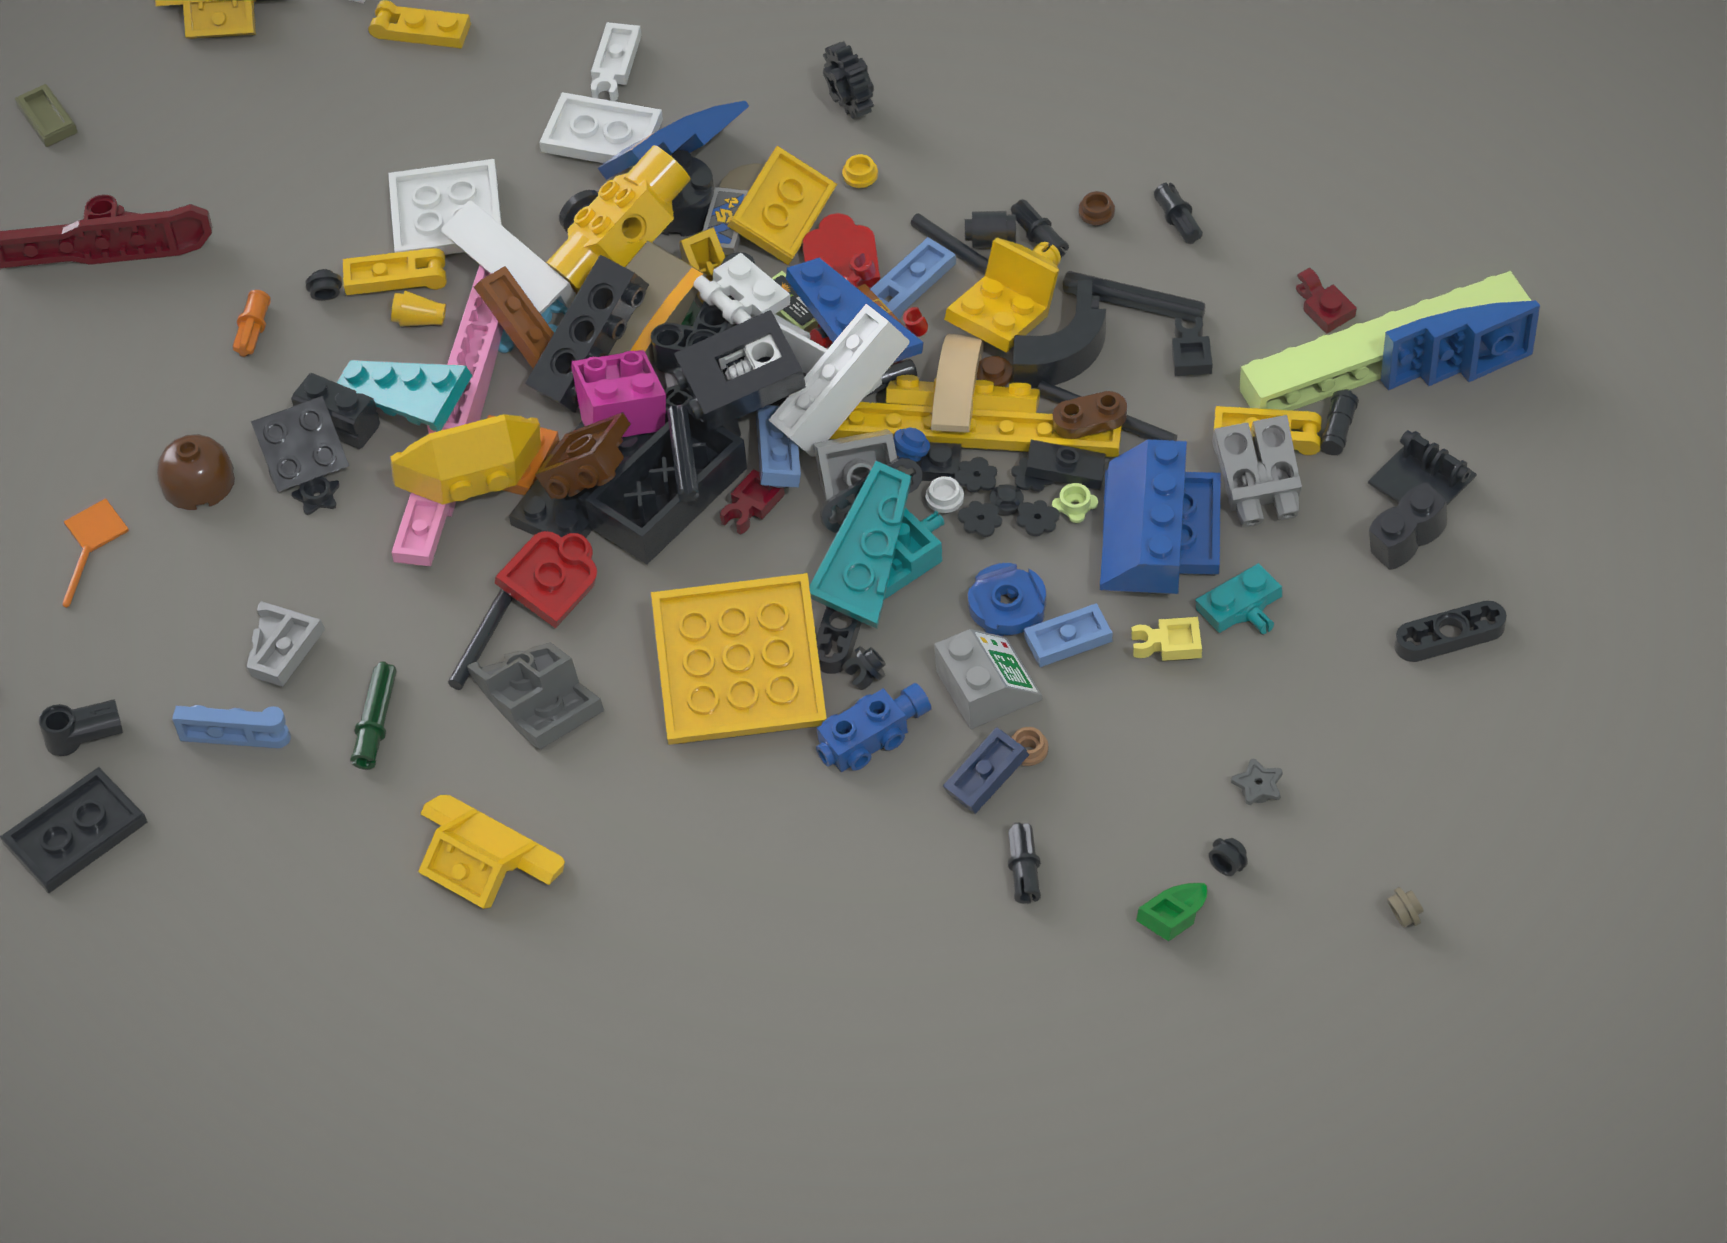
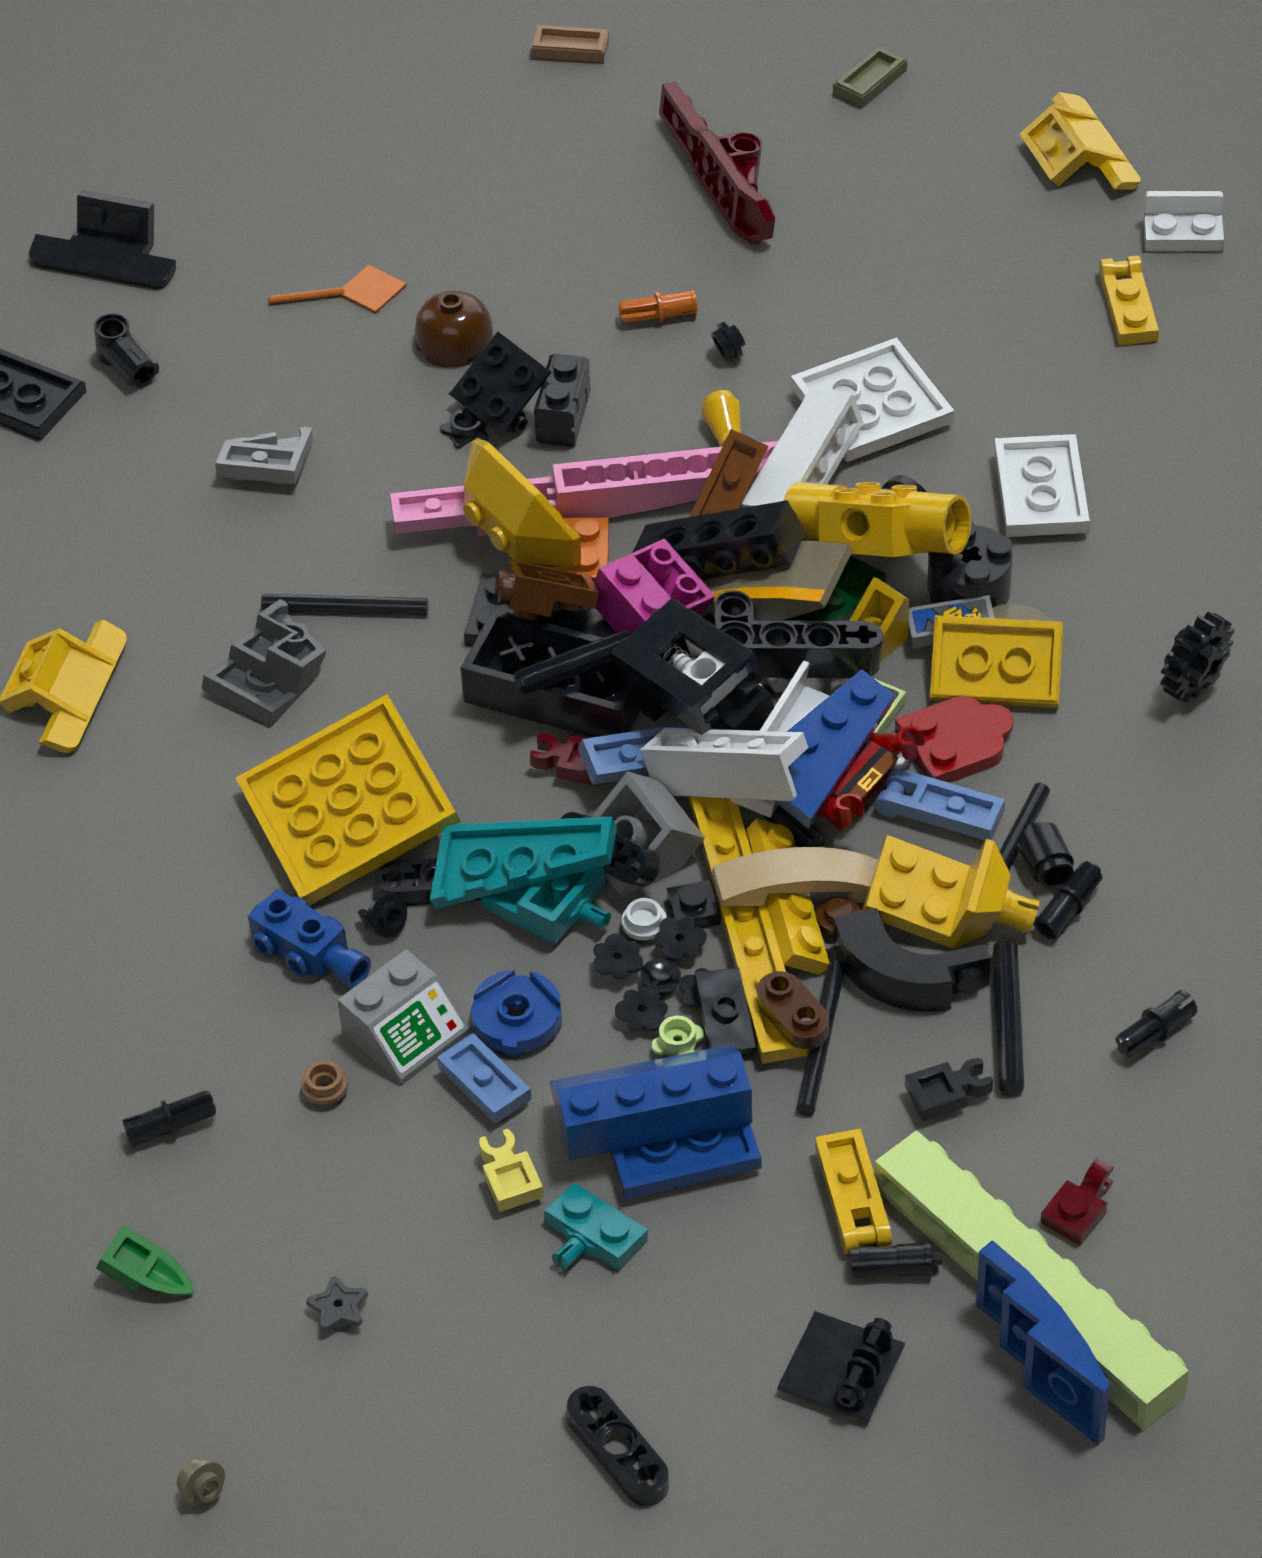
camera: 70 degrees right, 5 degrees down
(232, 726) = (156, 455): medium blue plate -> none
(371, 727) = (203, 552): dark green axle -> none
(394, 271) = (766, 384): yellow plate -> none
(409, 389) = (597, 437): wing -> none
(550, 575) = (412, 626): red plate -> none
(614, 58) = (1151, 464): white plate -> none
(684, 134) = (1040, 540): blue slope -> none
(747, 284) = (822, 653): white plate -> none
(860, 171) = (1086, 718): yellow plate -> none
(911, 443) = (689, 862): blue plate -> none
(986, 770) = (272, 1049): dark blue plate -> none
(1096, 208) = (1129, 946): reddish brown plate -> none
(1228, 856) = (228, 1299): black plate -> none
(1263, 481) = (774, 1187): light grey hips -> none
(1411, 524) = (742, 1356): black brick -> none

